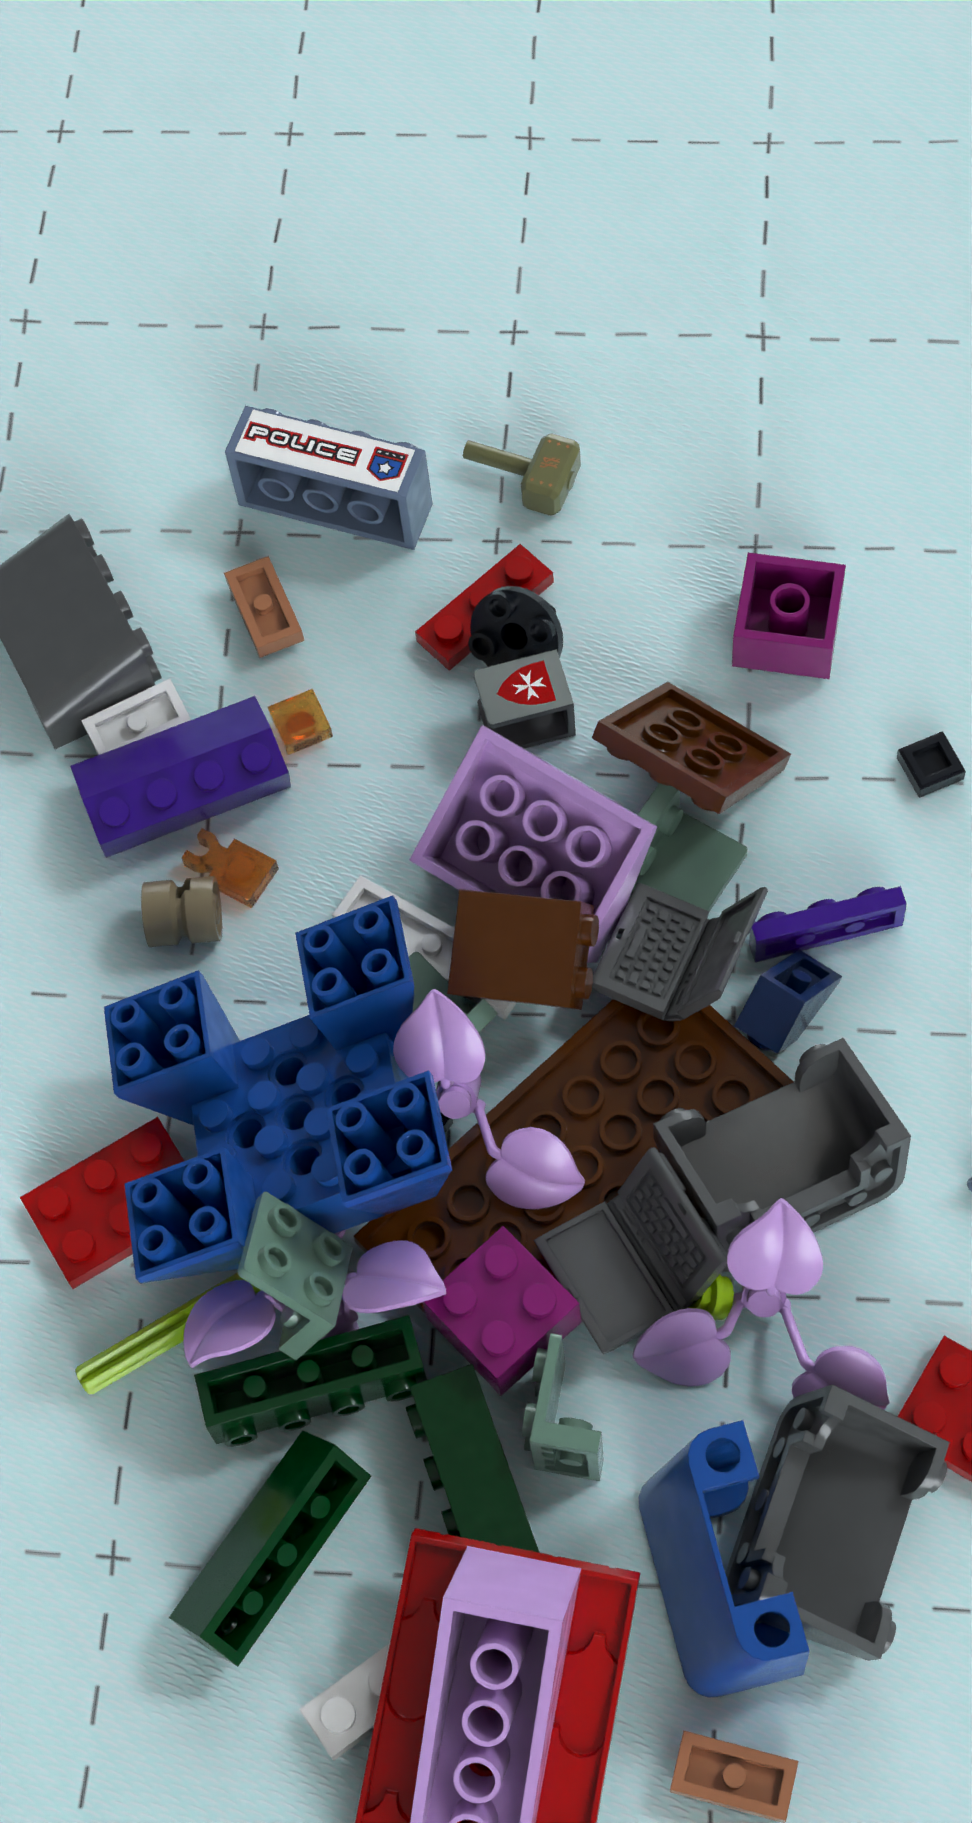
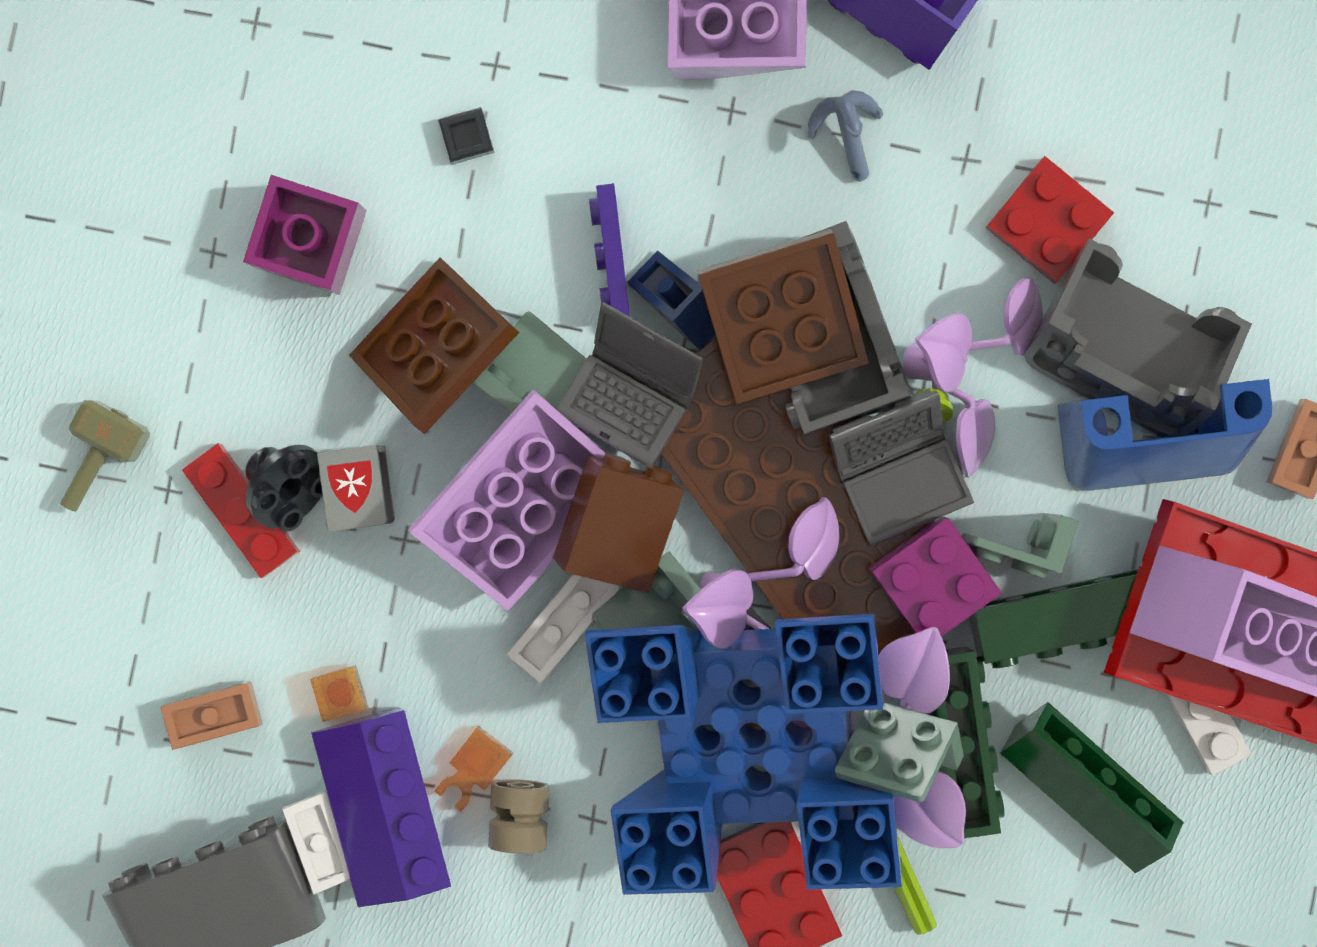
camera: 85 degrees left, 25 degrees up
(330, 476) = (86, 641): sand blue brick -> none
(786, 1086) = (783, 316): none -> reddish brown plate

